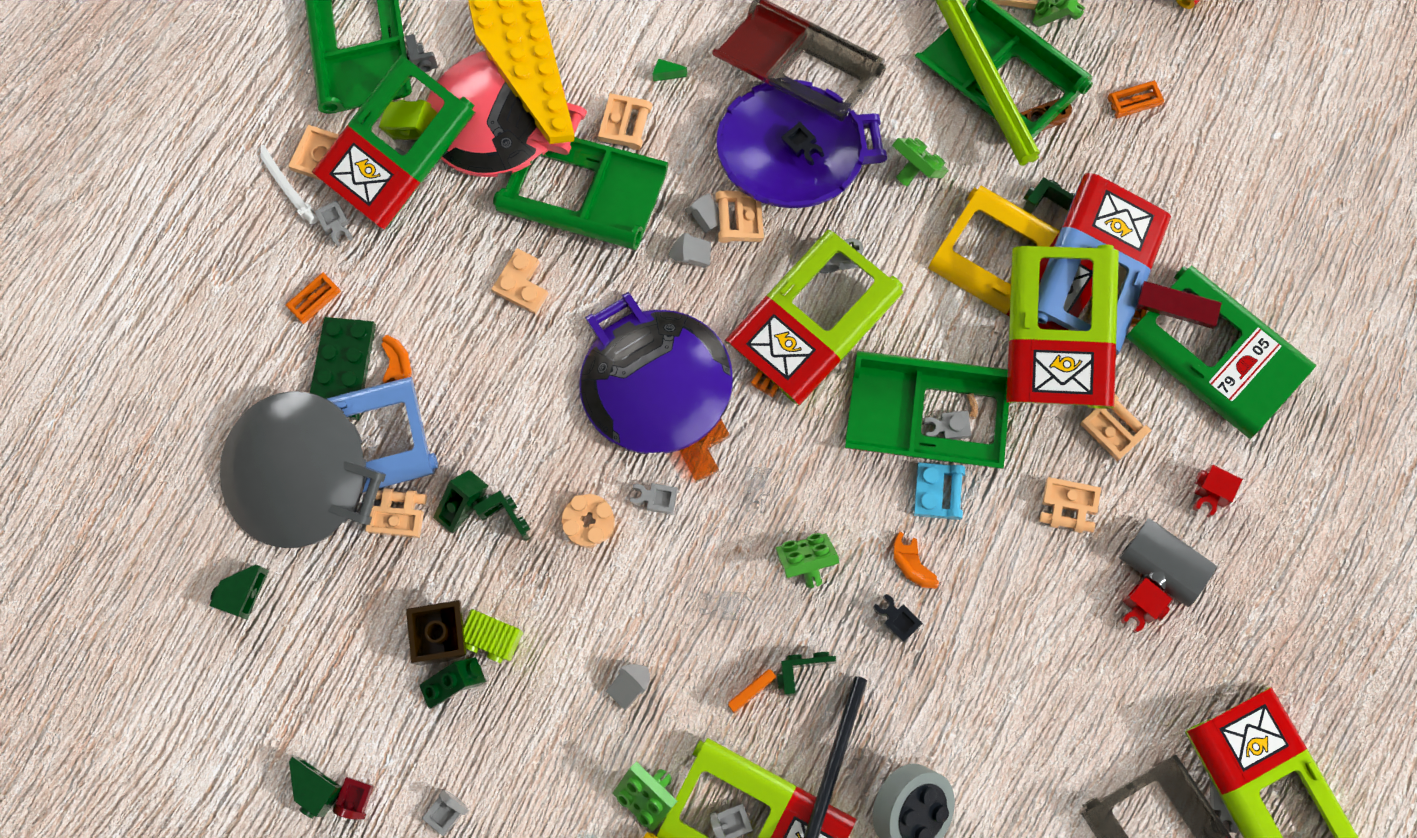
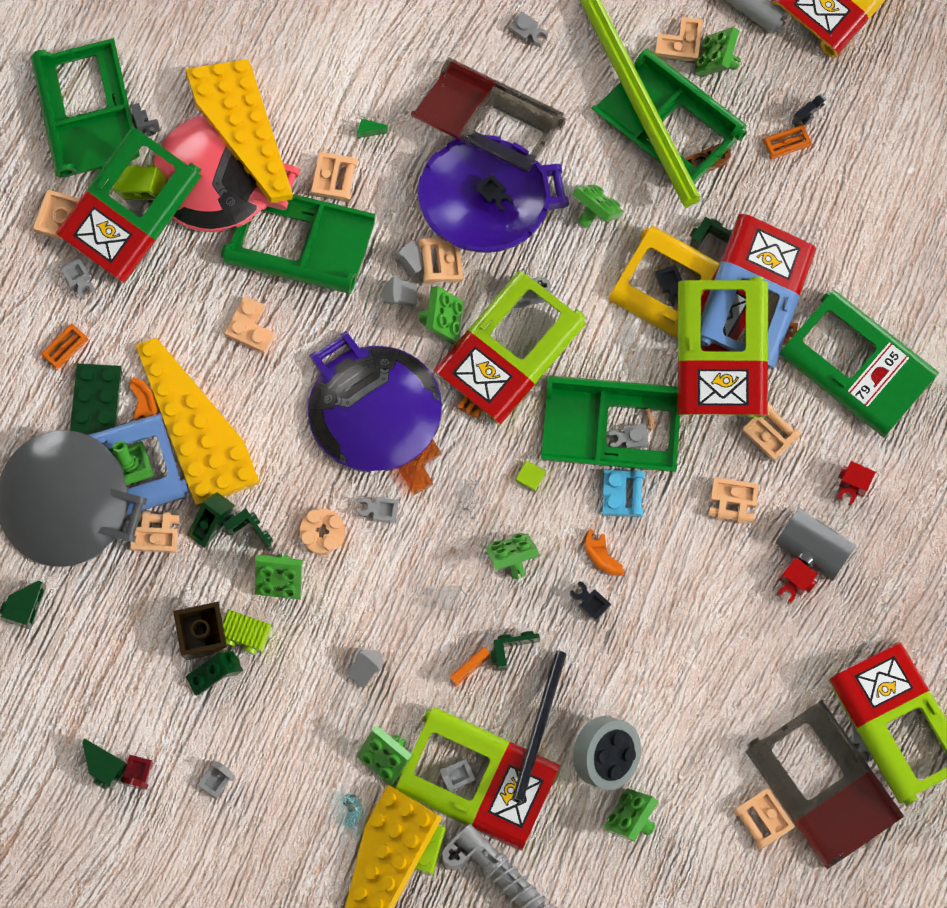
camera: 10 degrees left, 0 degrees up
(304, 210) = (49, 267): white sword -> none
(375, 429) = (133, 461): none -> bright green plate
(460, 411) = (204, 441): none -> yellow wing
(533, 572) = (278, 572): none -> bright green plate
(738, 277) = (443, 314): none -> bright green plate
(832, 466) = (531, 476): none -> lime tile
(999, 249) = (668, 281): none -> black plate
(1158, 68) = (806, 113): none -> black plate
(1179, 304) = (821, 325): dark red tile -> none

